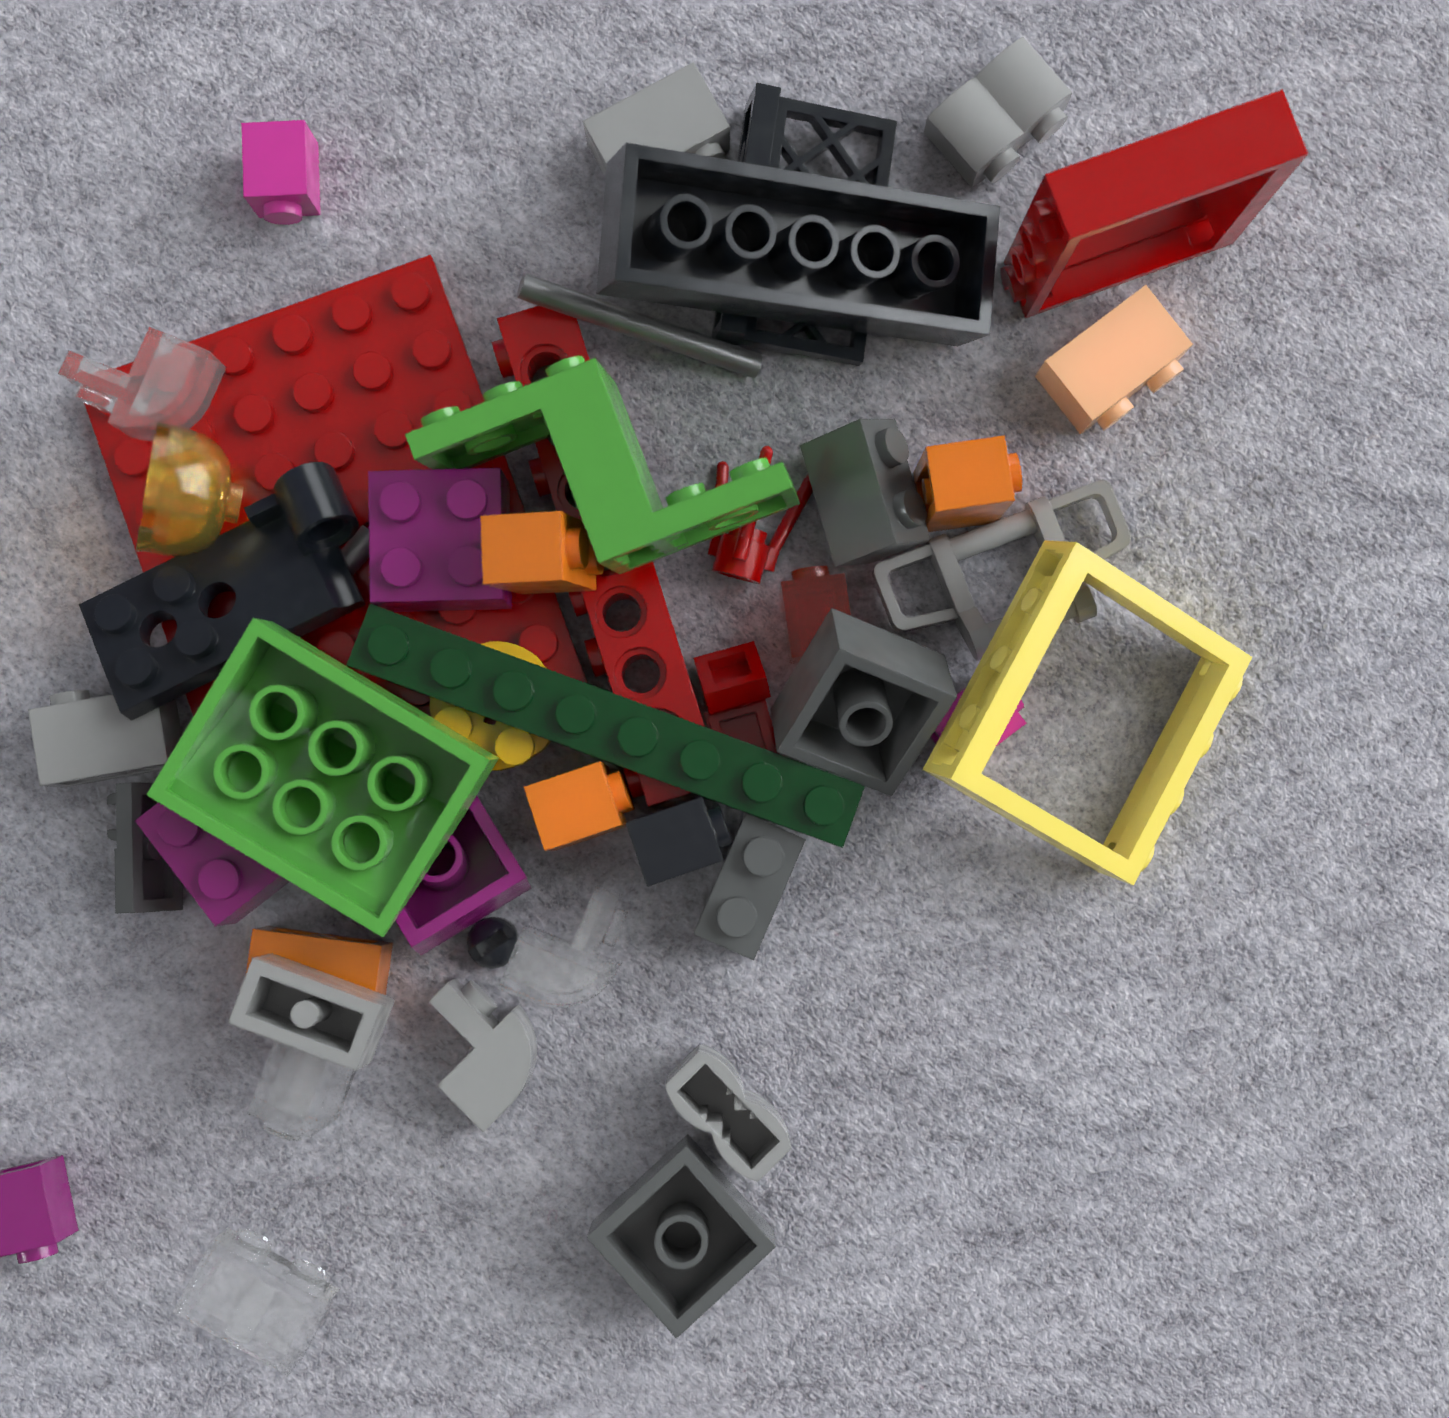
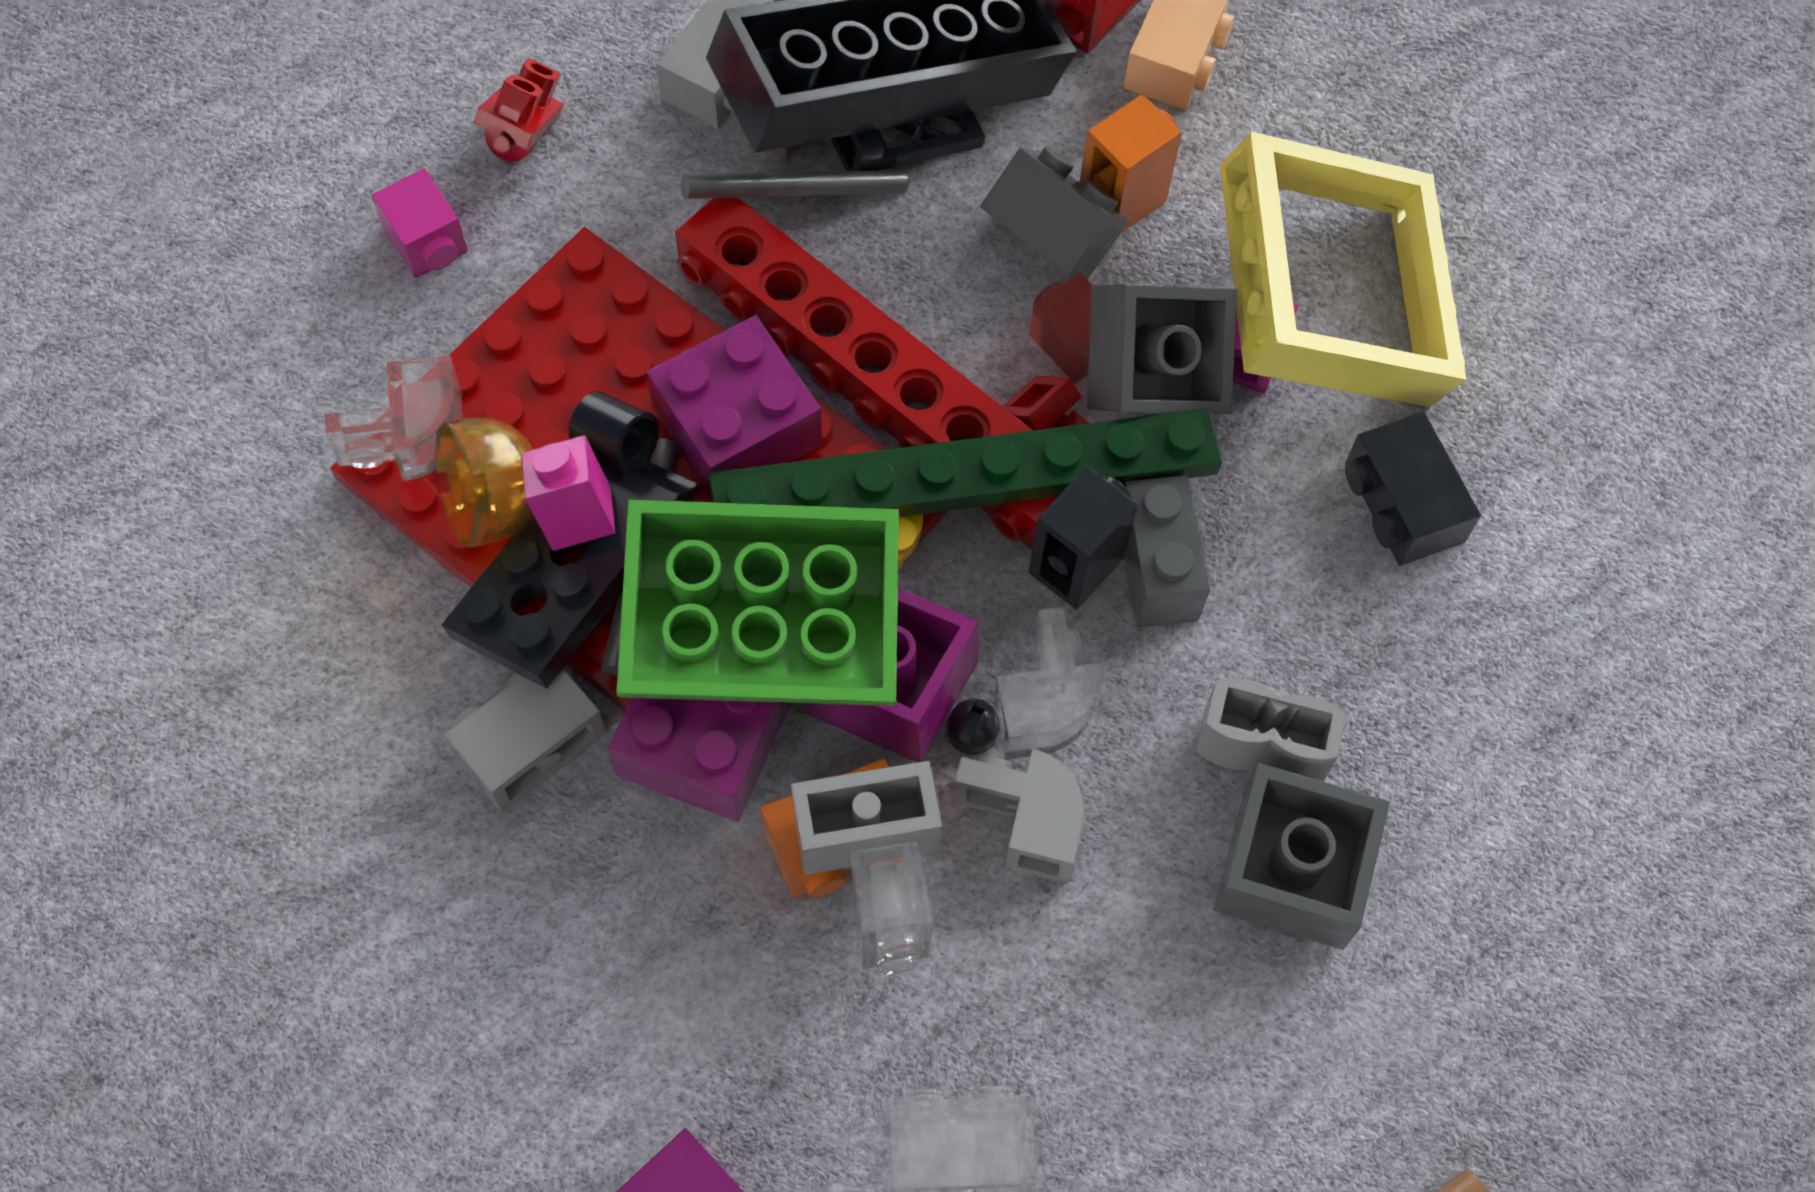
camera: 35 degrees left, 20 degrees down
(141, 874) = (617, 805): dark grey plate -> none
(229, 558) = (568, 493): none -> dark pink brick
(433, 98) = (520, 111): none -> red hips
(537, 553) = (835, 352): orange brick -> none
(579, 805) = (982, 553): orange brick -> none
(602, 464) = (847, 261): bright green bracket -> none
(743, 550) = (983, 312): red plant -> none
(946, 553) = (1149, 242): light grey bar -> none
(1014, 953) = (1411, 489): none -> black brick

